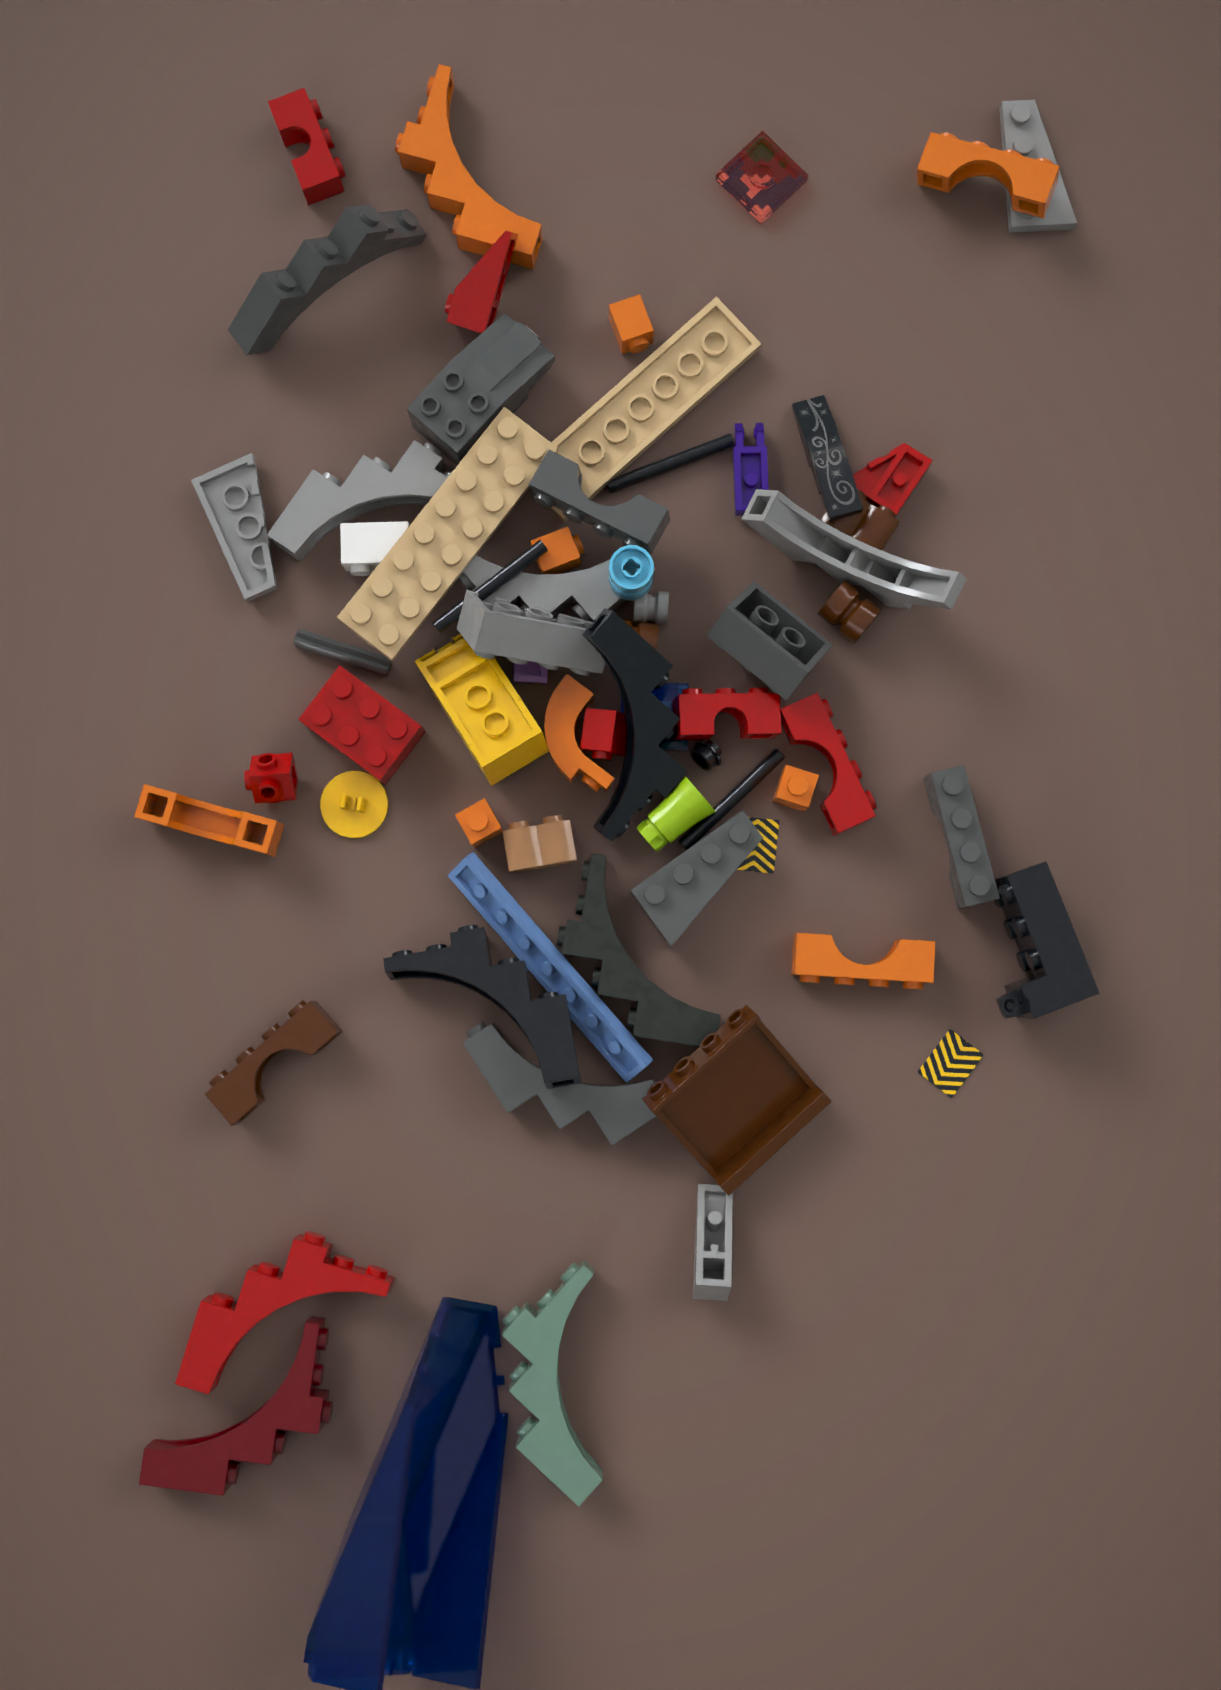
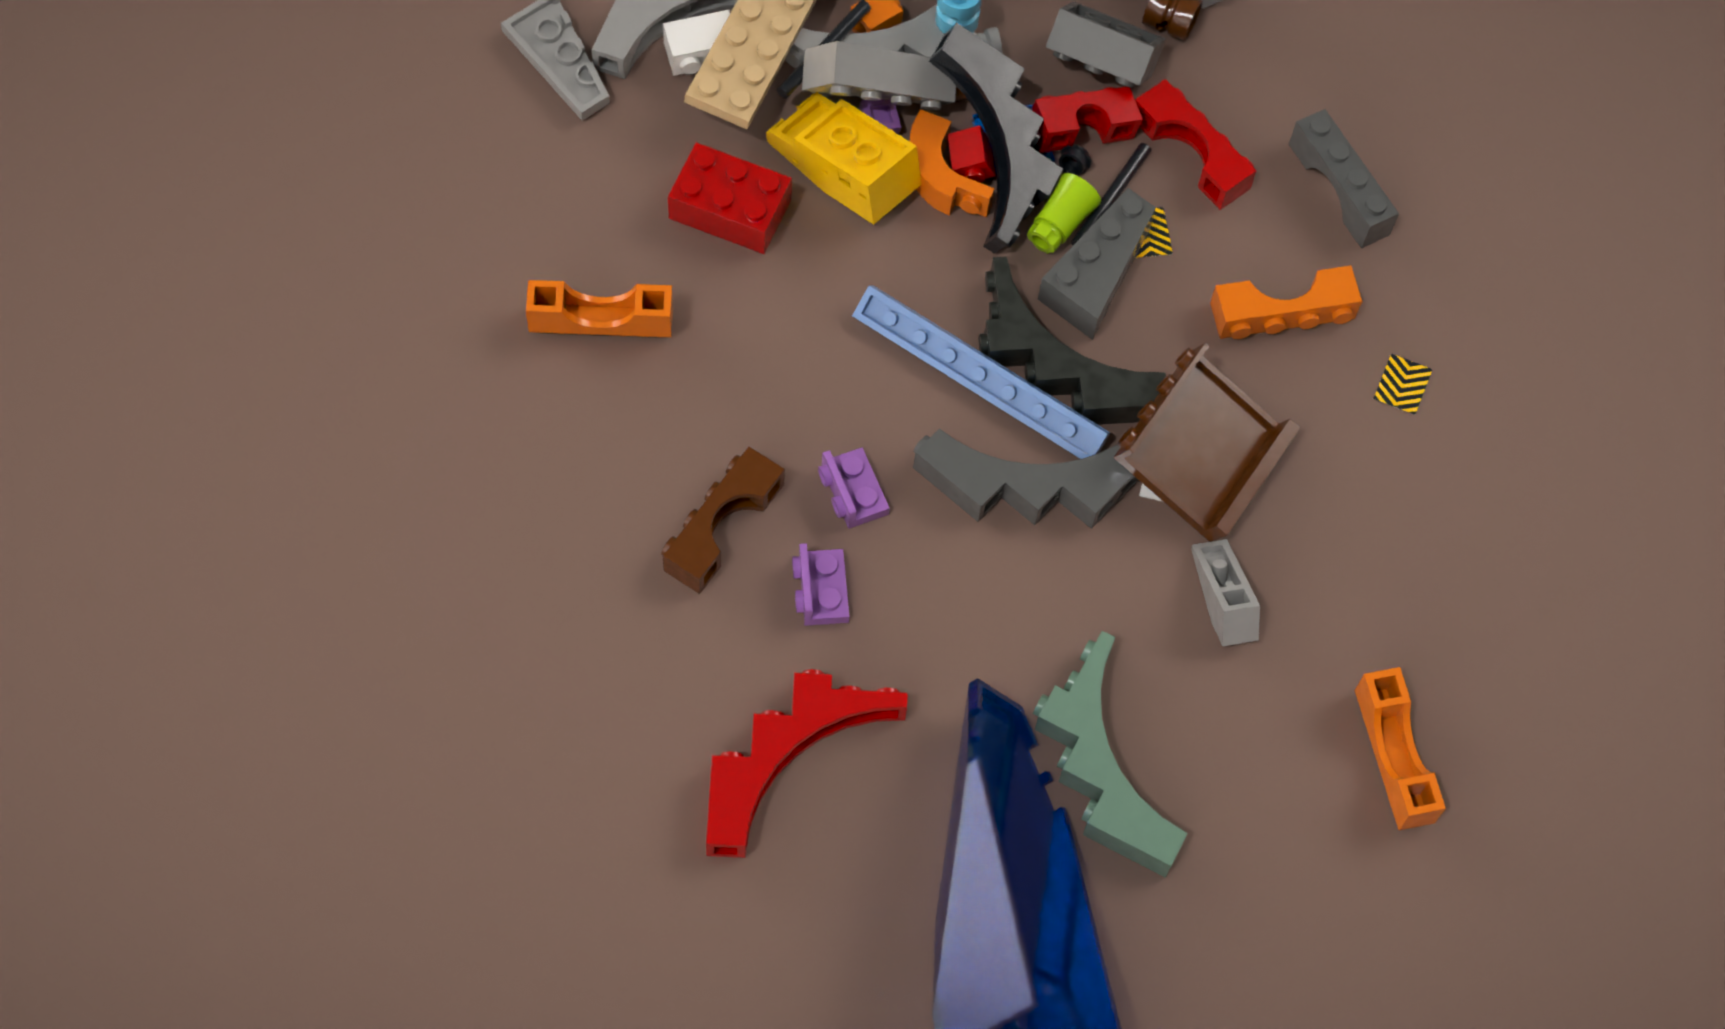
camera: 20 degrees left, 20 degrees down
(208, 1461) = (759, 924): dark red arch -> none
(272, 778) = (652, 259): red brick -> none
(342, 652) = (684, 143): dark grey axle -> none
(346, 1146) = (823, 586): none -> medium lavender bracket
(354, 804) = (738, 276): yellow piece -> none
(402, 1053) = (854, 487): none -> medium lavender bracket
(479, 823) = (871, 259): orange brick -> none
(507, 985) = (944, 393): black arch -> none
(539, 845) = (936, 269): medium nougat brick -> none
(795, 788) = (1170, 168): orange brick -> none
(819, 1443) = (1409, 785): none -> orange arch
(1045, 943) = (1455, 244): black hinge -> none

